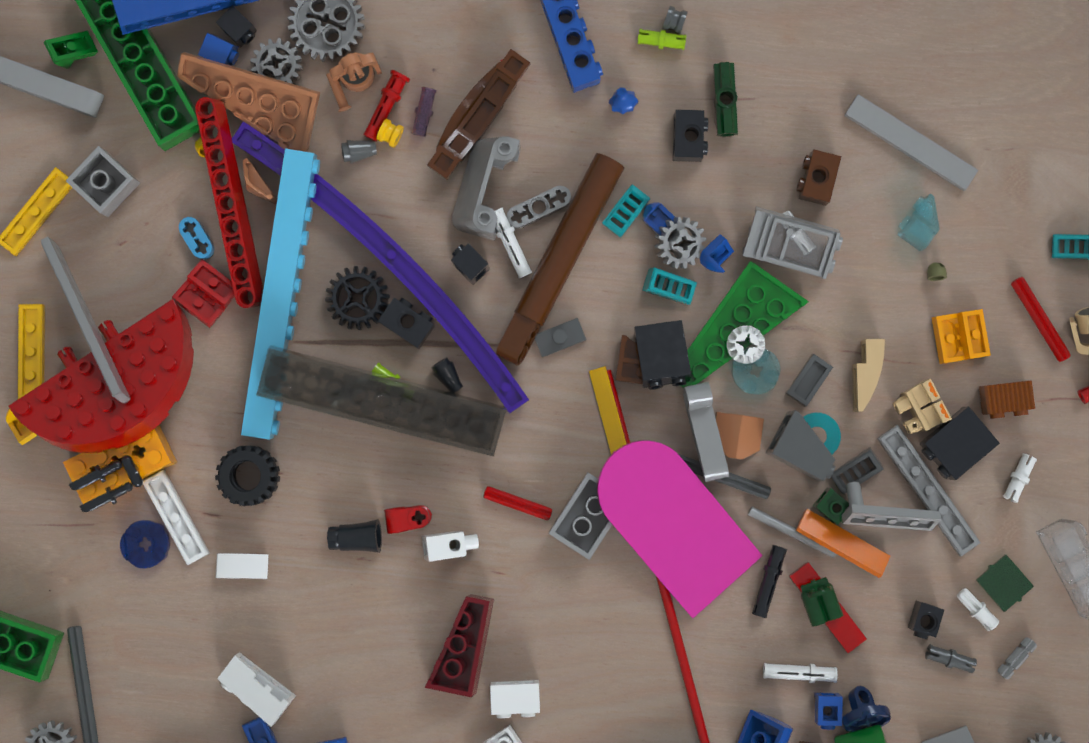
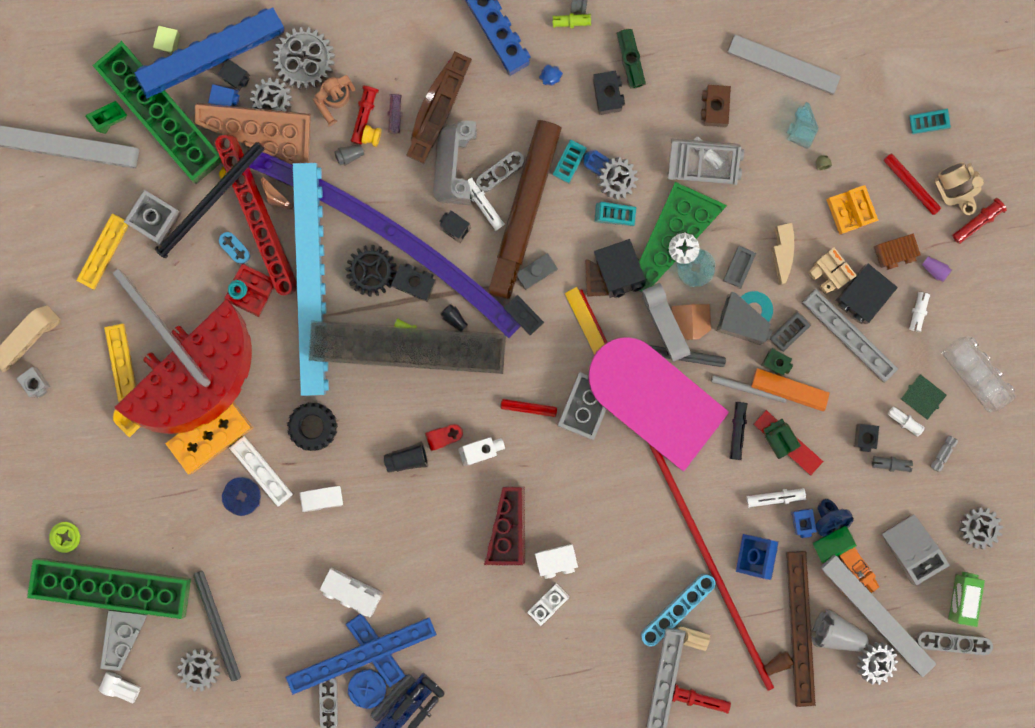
camera: 10 degrees left, 0 degrees up
(110, 495) = (222, 440): black piece -> none
(175, 173) = (209, 200): none -> black axle
(183, 292) = (232, 292): none -> teal plate
(533, 389) = (523, 315): none -> black panel
(716, 254) = (647, 181): blue plate -> none
(888, 517) = (819, 362): light grey piece -> none
(1051, 429) = (936, 268): none -> medium lavender cone

